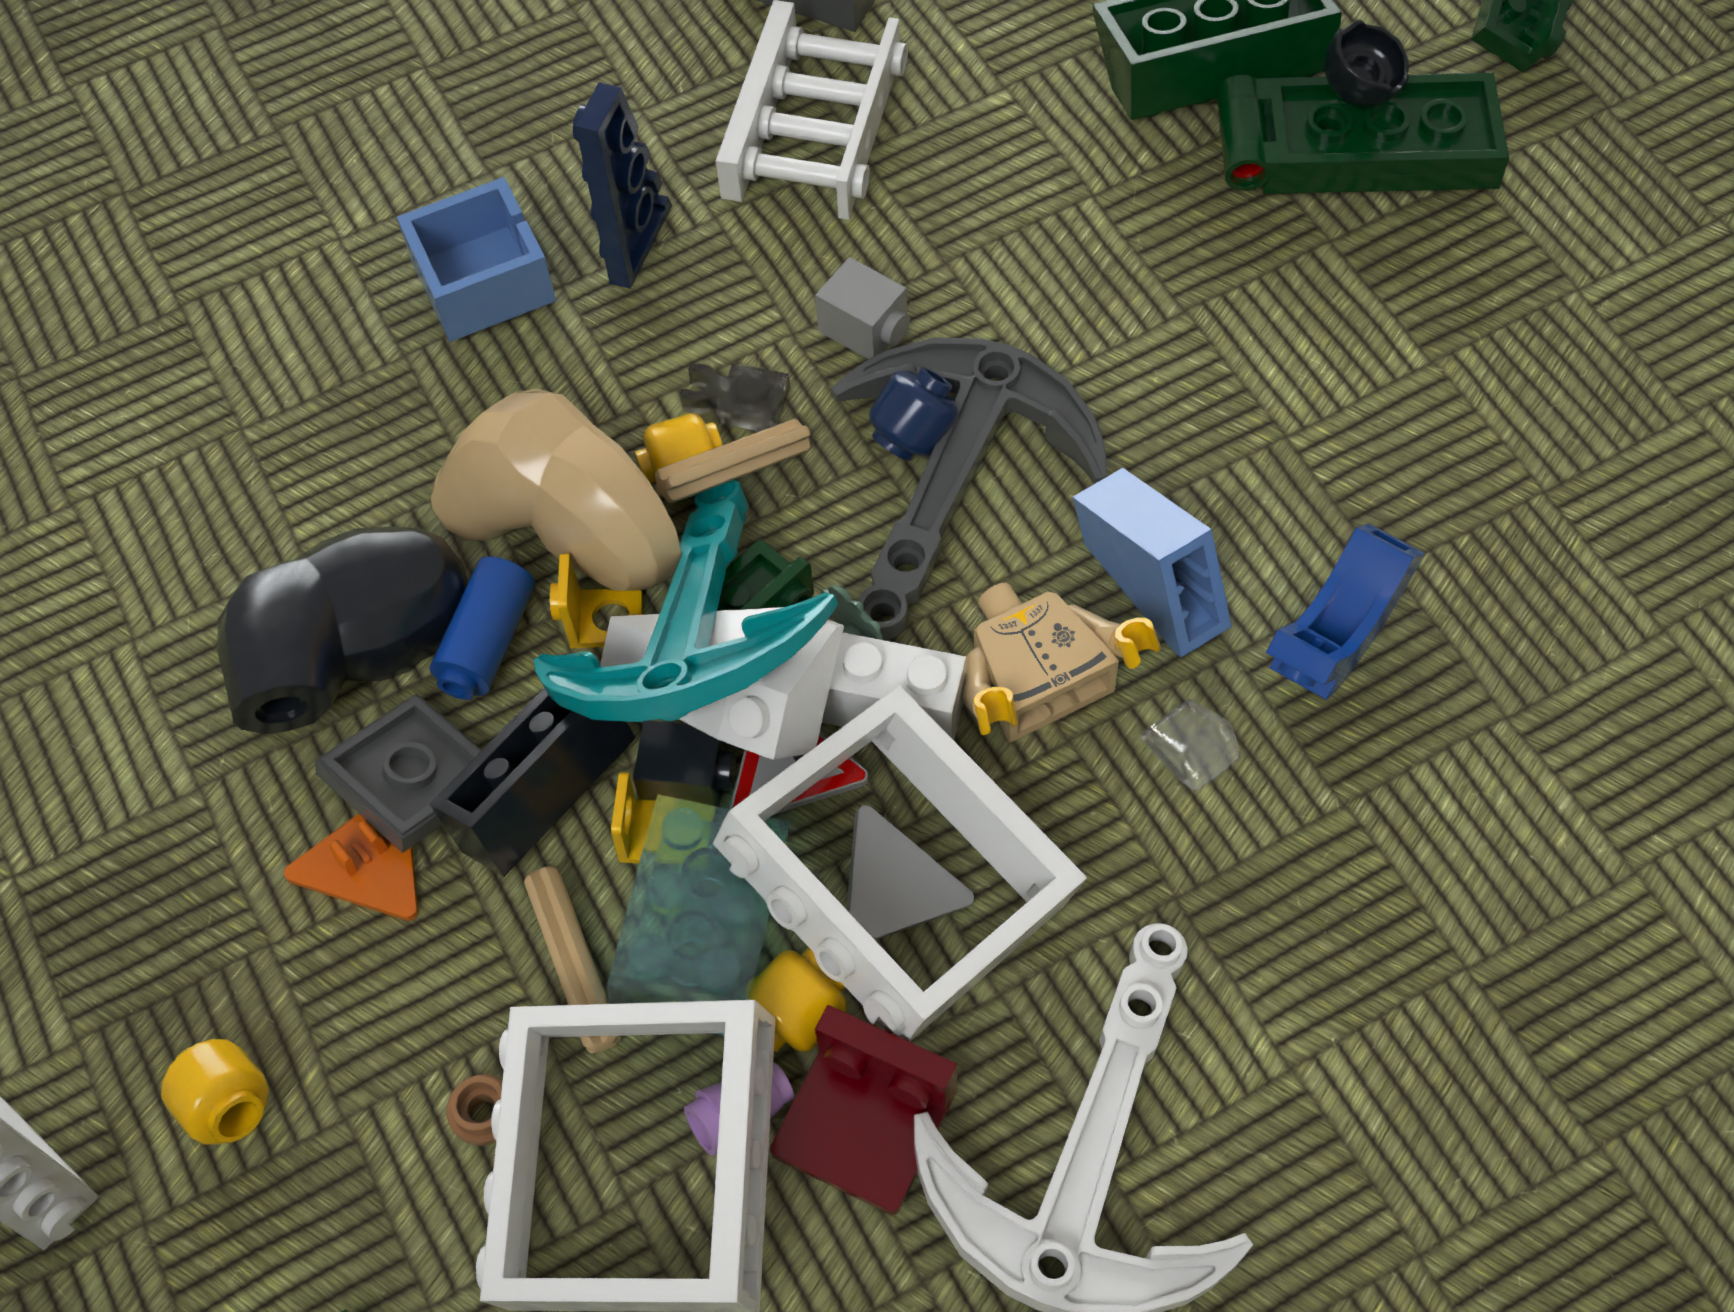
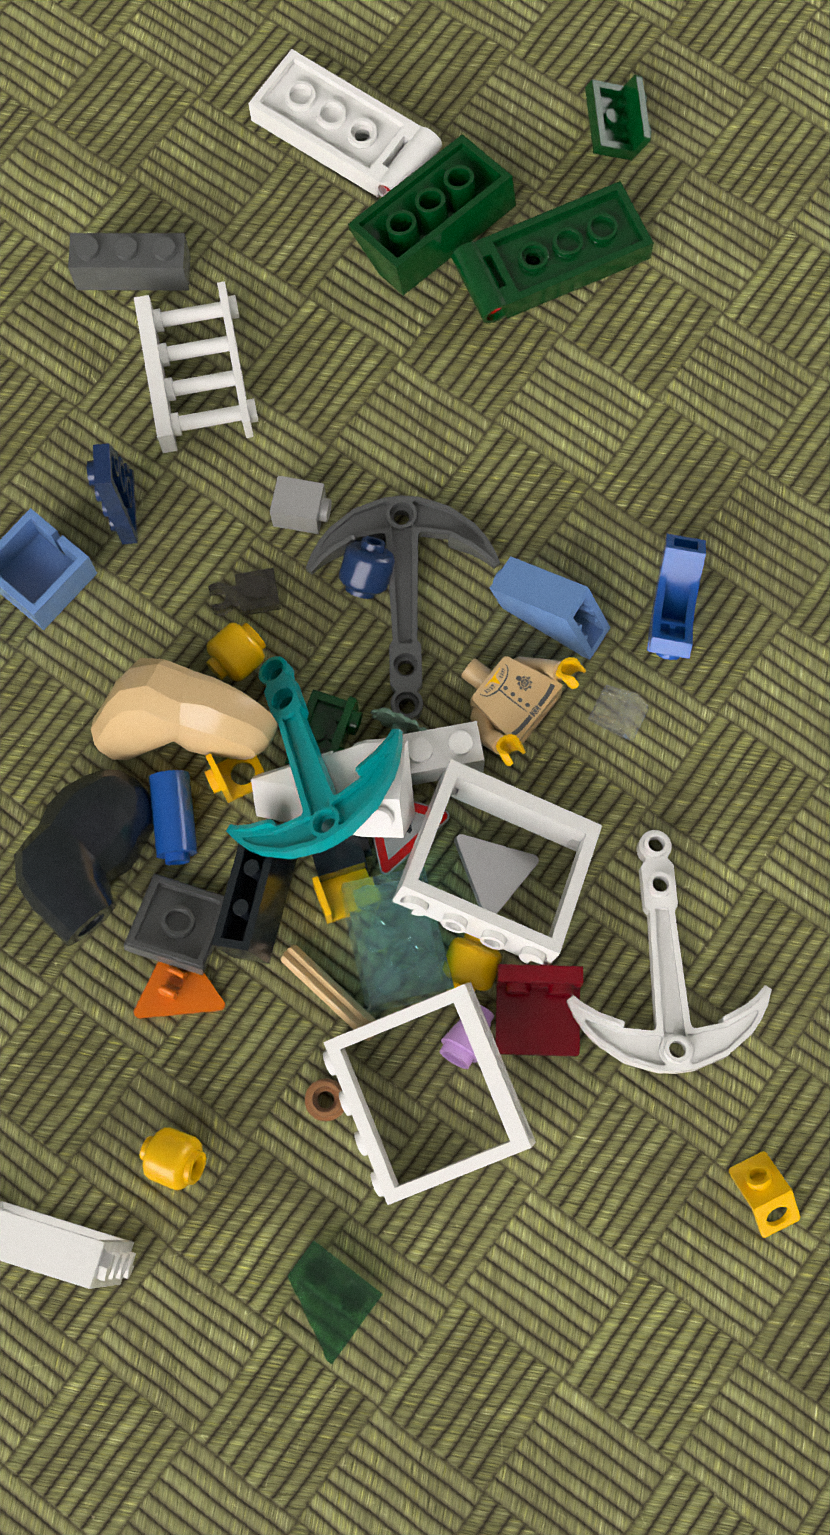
camera: 25 degrees left, 15 degrees up
(732, 461) = (272, 645): tan axle -> none
(1366, 65) = (545, 213): black hair -> none

